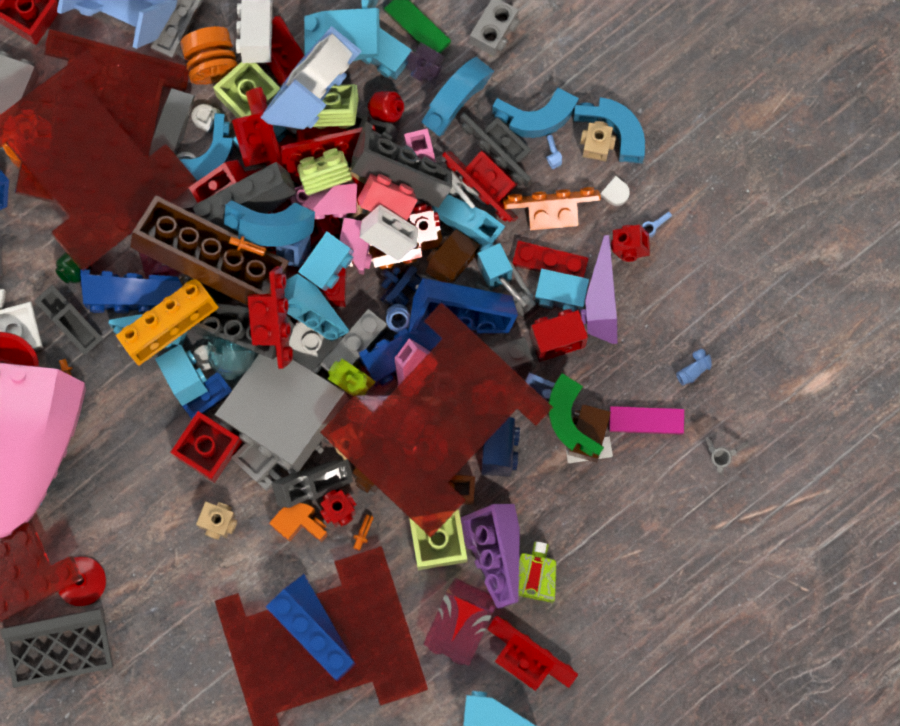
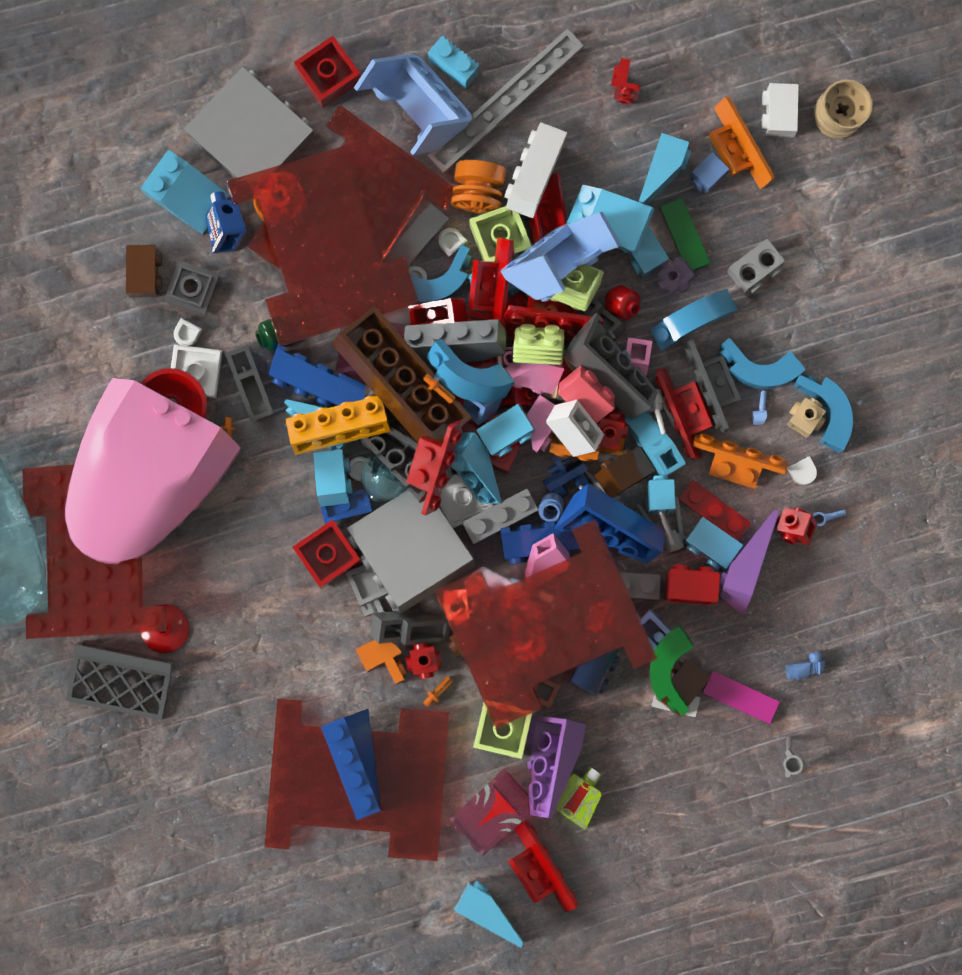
camera: 20 degrees right, 5 degrees up
(210, 514) = (300, 624): tan brick -> none
(322, 65) = (575, 245): white brick -> none
(350, 378) = (483, 548): lime hips -> none

